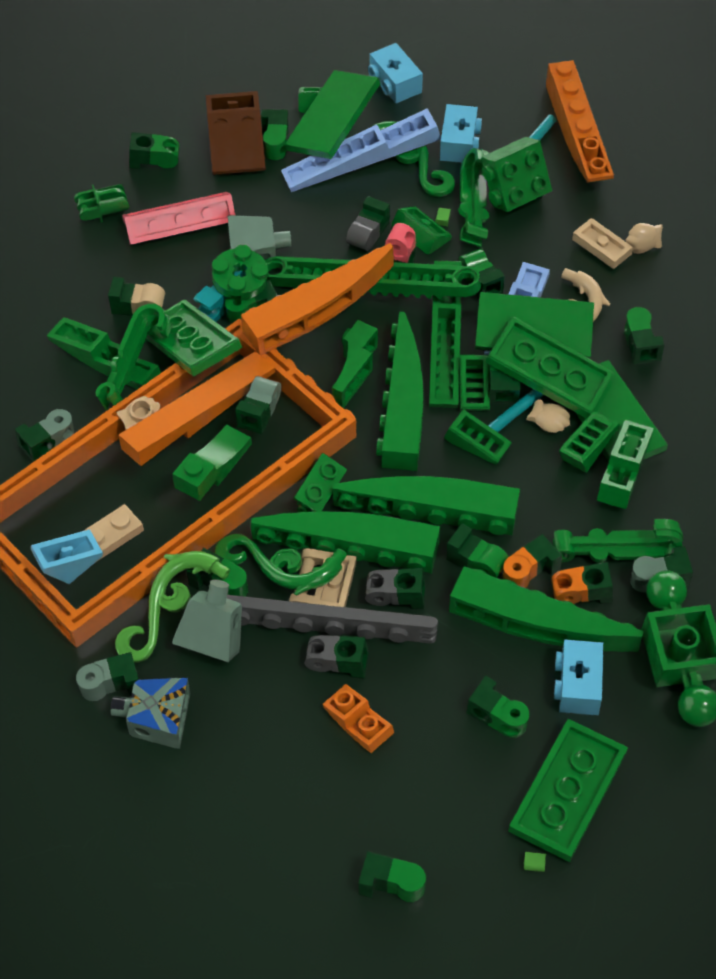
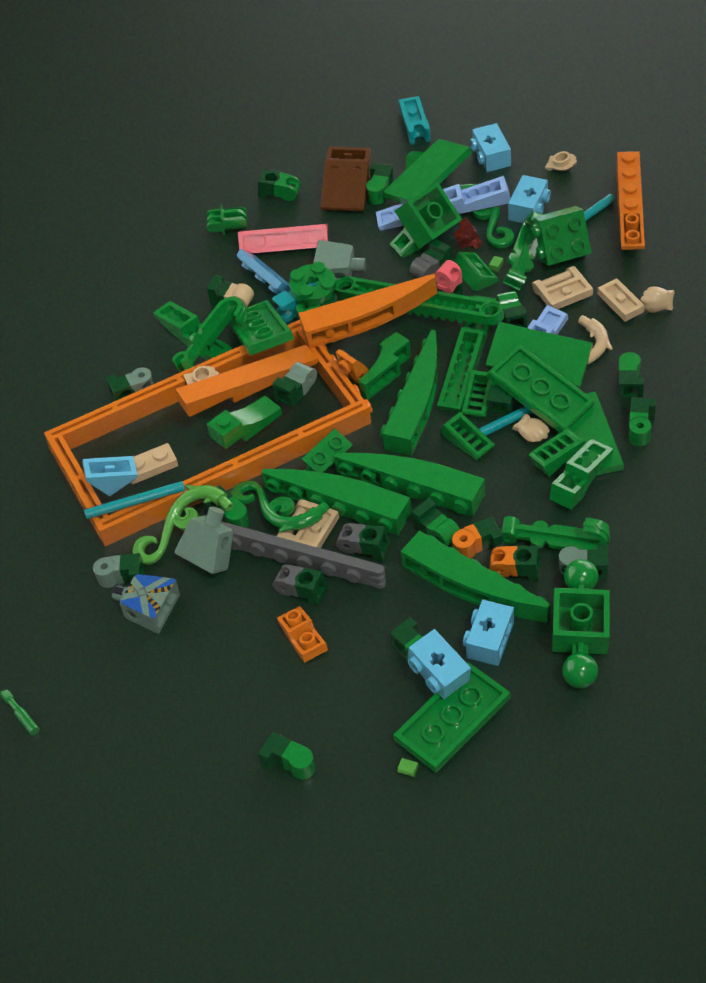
camera: 20 degrees right, 5 degrees down
(37, 885) = (20, 713): none -> green piece
(104, 585) = (134, 500): none -> teal bar
(169, 265) = (263, 272): none -> dark azure tile
(292, 47) = (414, 119): none -> teal plate
(320, 372) = (350, 366): none -> orange slope
(328, 205) = (404, 244): none -> green slope
(353, 168) = (428, 215): none -> green brick
(401, 186) = (467, 235): none -> clear red tile
(481, 81) = (561, 162): none -> tan animal
(534, 715) = (438, 664): none -> medium azure brick
(535, 243) = (563, 288): none -> tan plate
(668, 382) = (639, 425): none -> green leg

